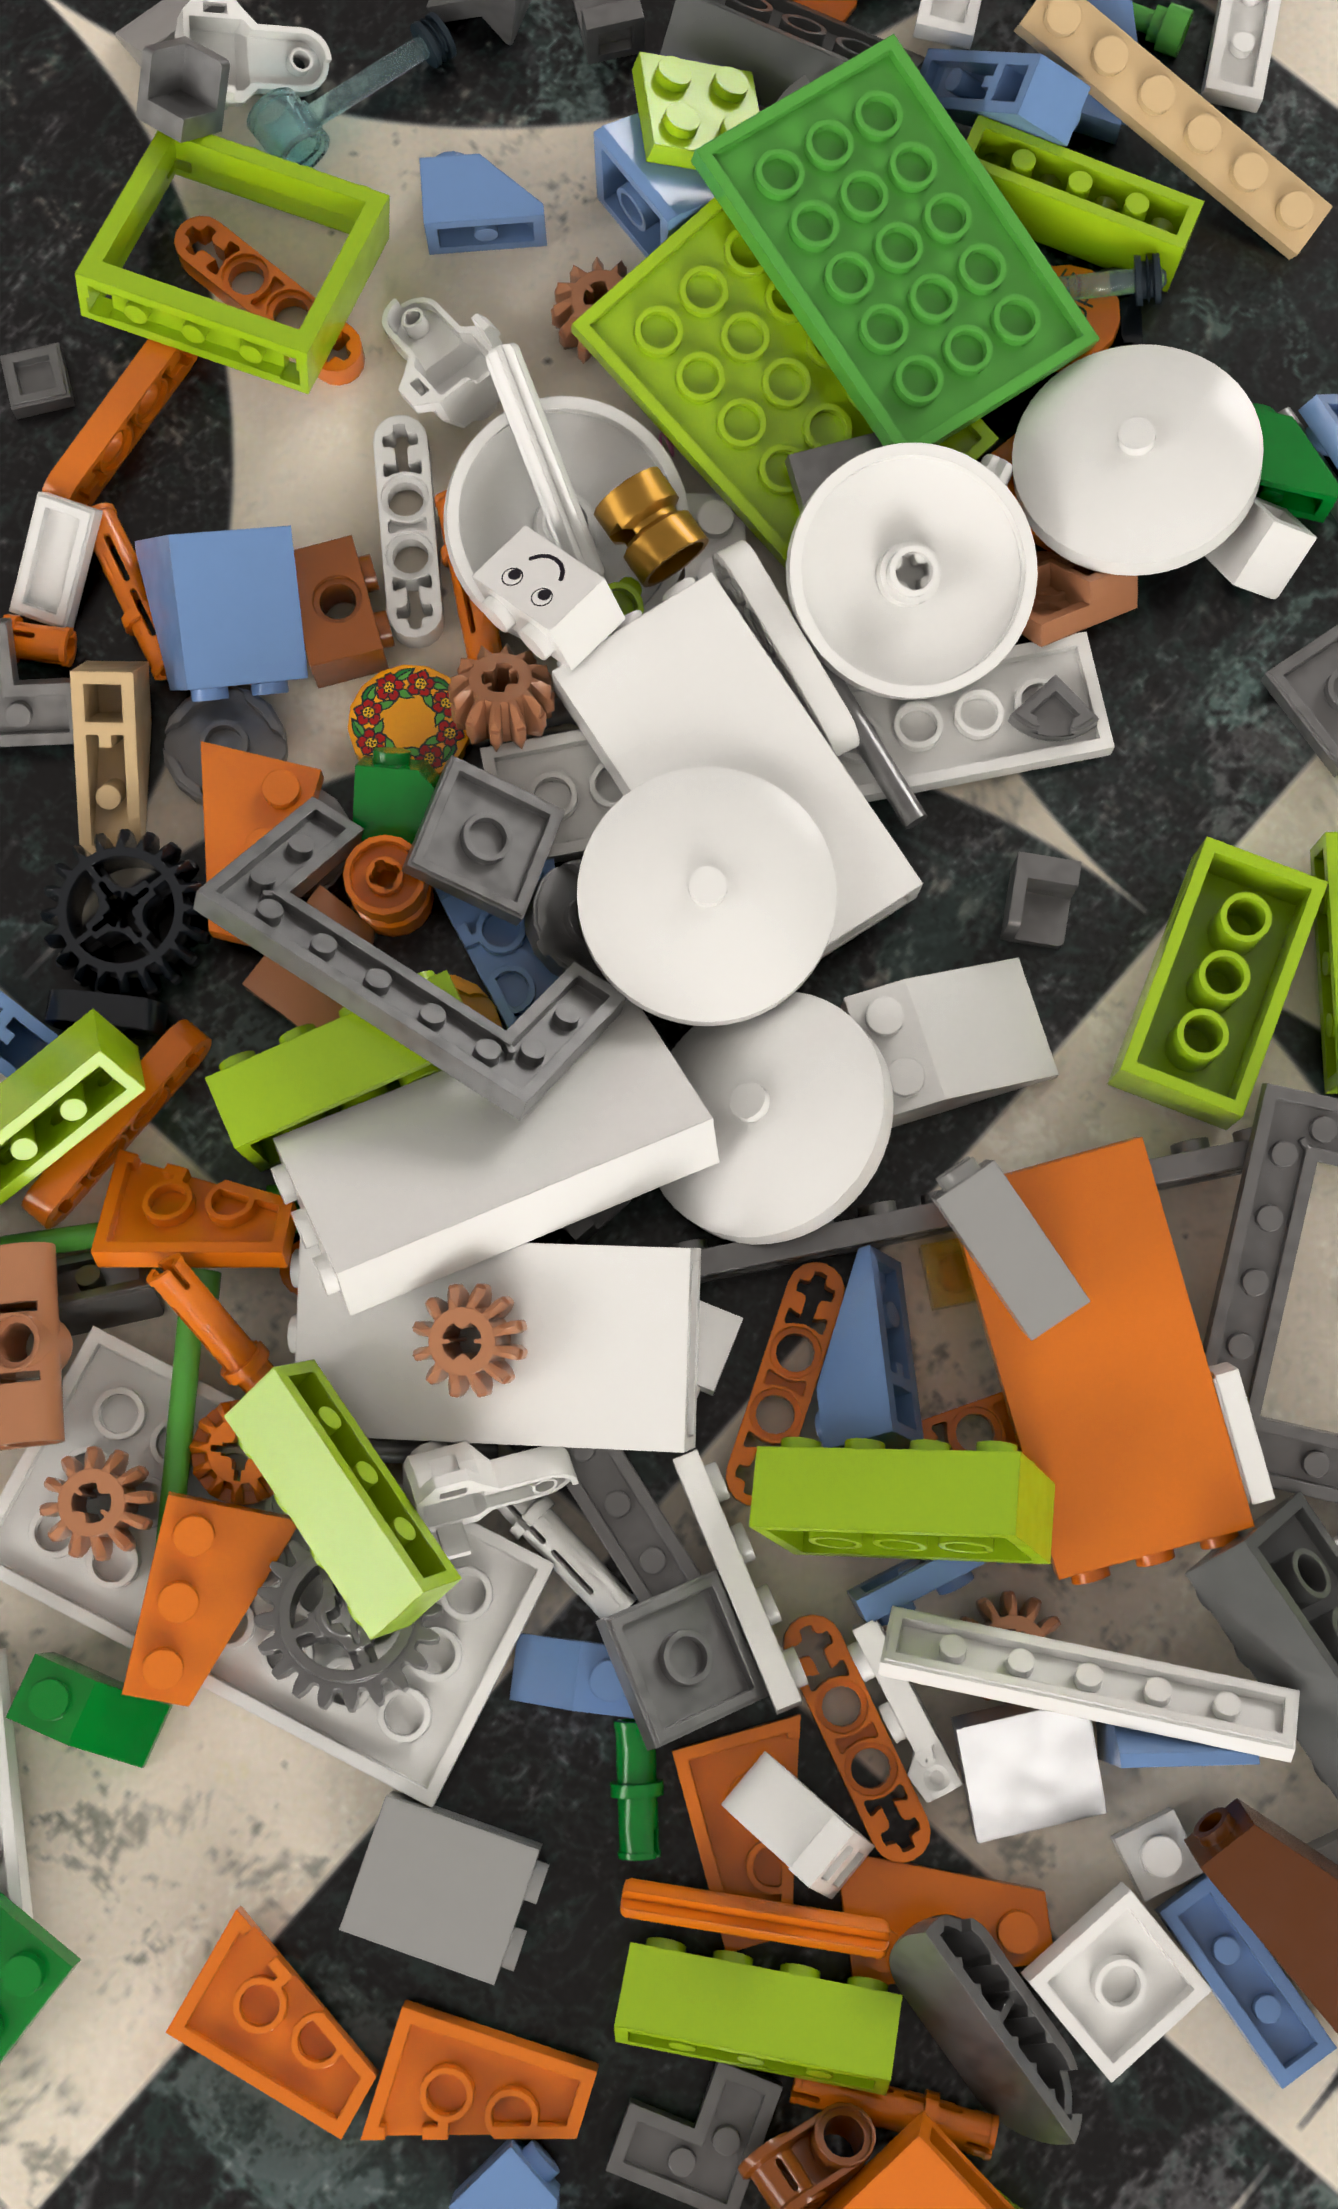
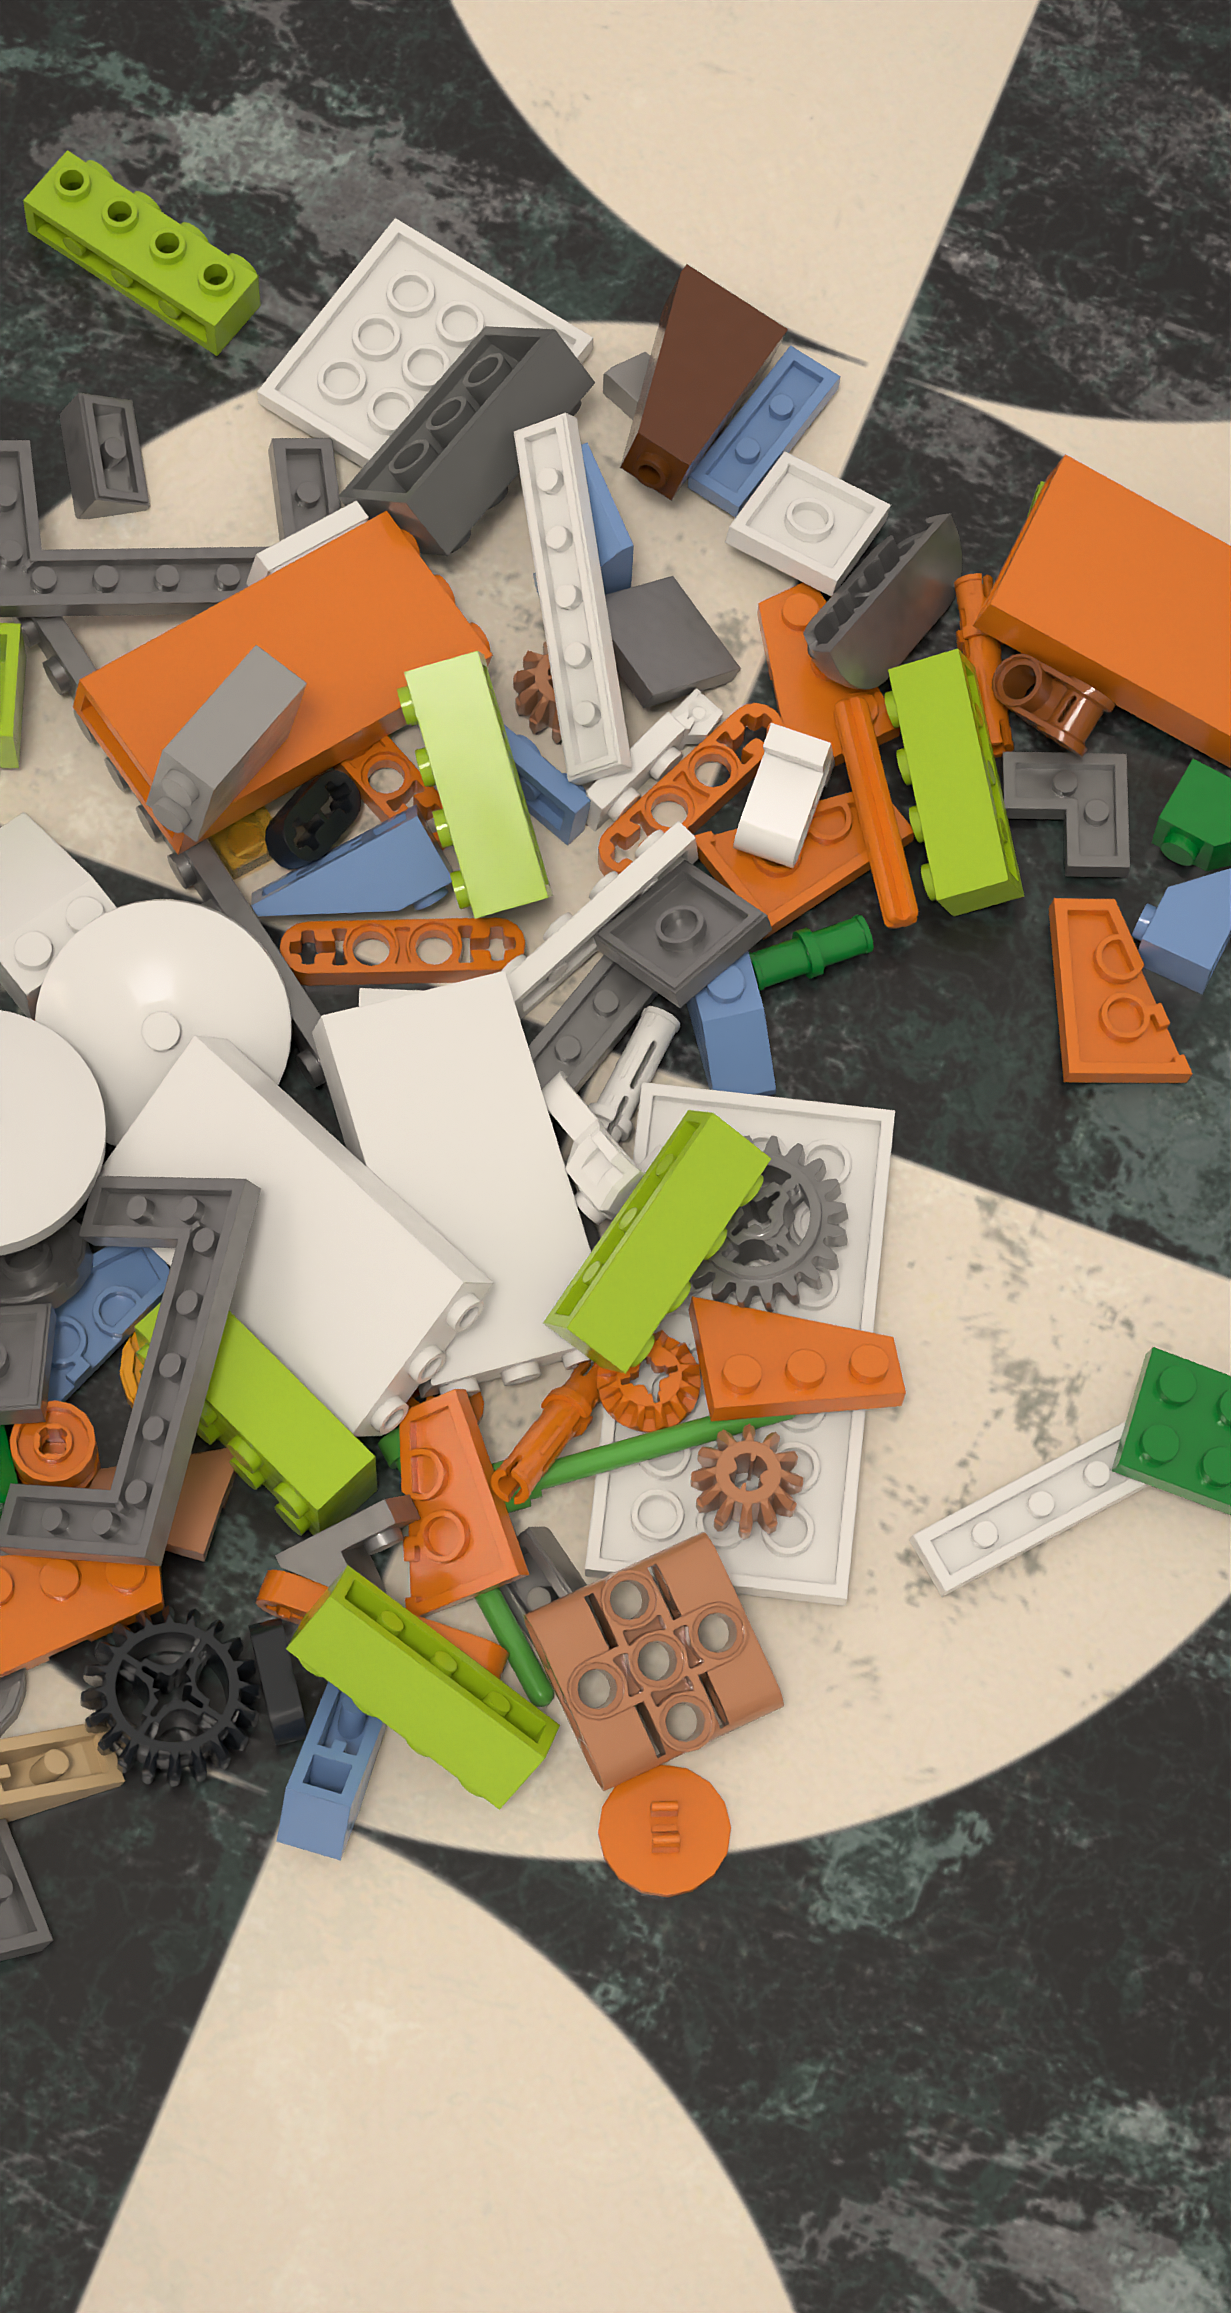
camera: 115 degrees left, 10 degrees down
(87, 1710) = (932, 1443): green slope -> none
(185, 1115) = (351, 1543): none -> flat silver slope
(272, 2029) = (1136, 1182): orange wing -> none
(444, 1347) = (451, 1178): nougat gear -> none
(445, 1888) = (957, 1079): light grey brick -> none
(942, 1343) = (320, 828): none -> black beam
(1156, 1854) = (690, 529): white plate -> none

